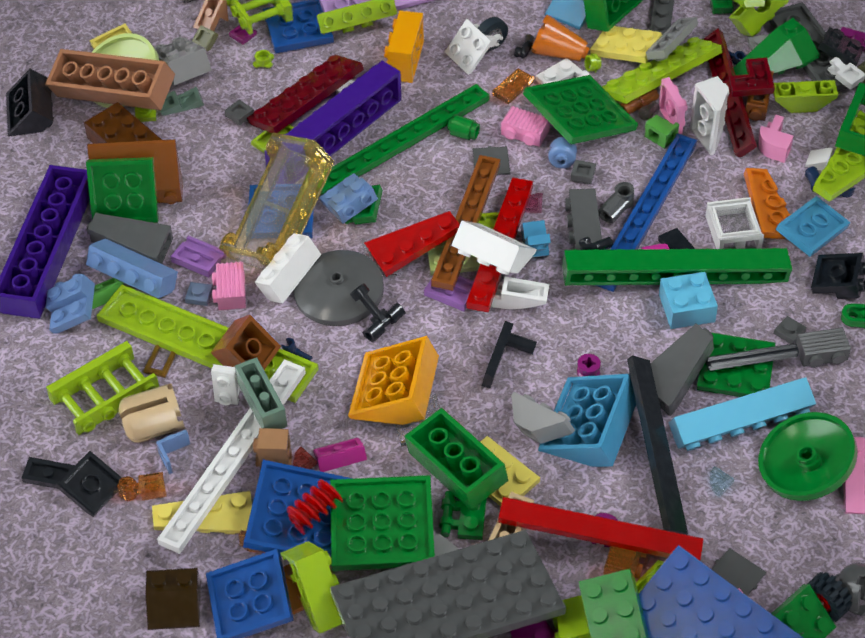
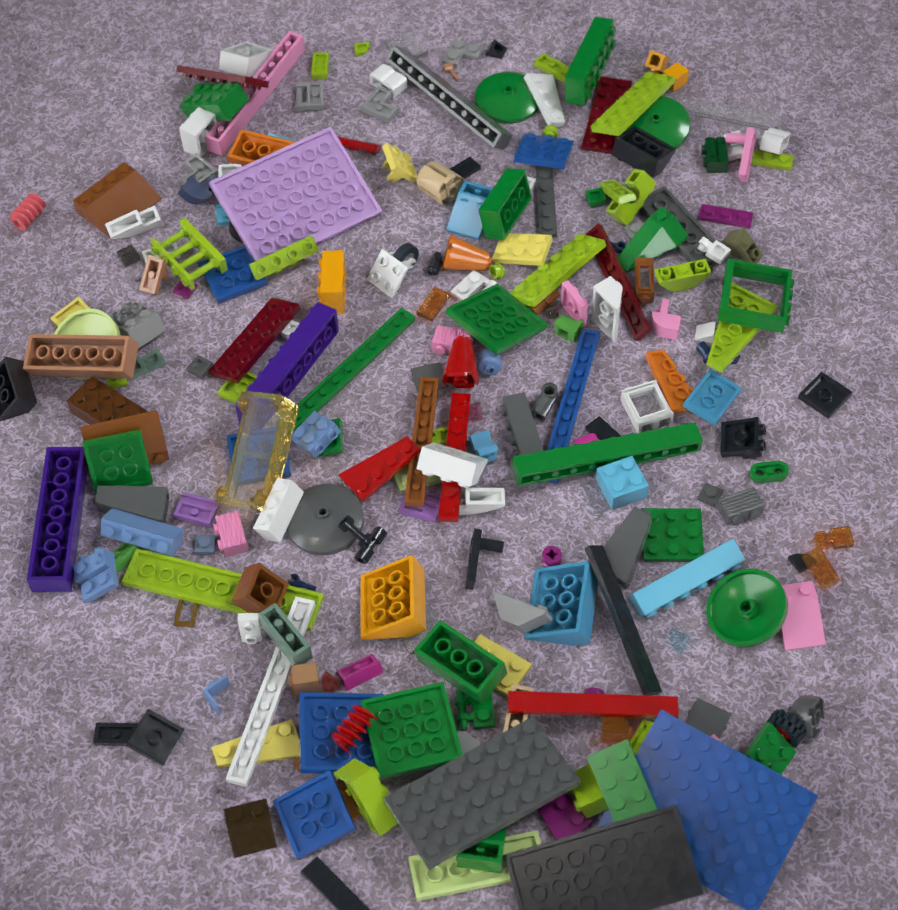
camera: 10 degrees left, 5 degrees up
(91, 372) = (130, 634): lime fence -> none
(149, 486) = (205, 731): clear orange plate -> none
(150, 414) = (192, 665): tan cylinder -> none
(205, 37) = (152, 299): olive tile -> none
(263, 59) = (209, 307): lime plate -> none
(463, 128) = (399, 351): green brick -> none
(528, 150) = (461, 365): none -> red cone
(583, 172) = (510, 376): dark grey plate -> none
(602, 244) = (540, 446): black arm -> none
(671, 38) = (561, 239): light grey plate -> none
(752, 356) = (685, 526): black axle -> none
(756, 82) = (641, 271): dark red plate -> none
(840, 46) = (705, 225): black plate -> none

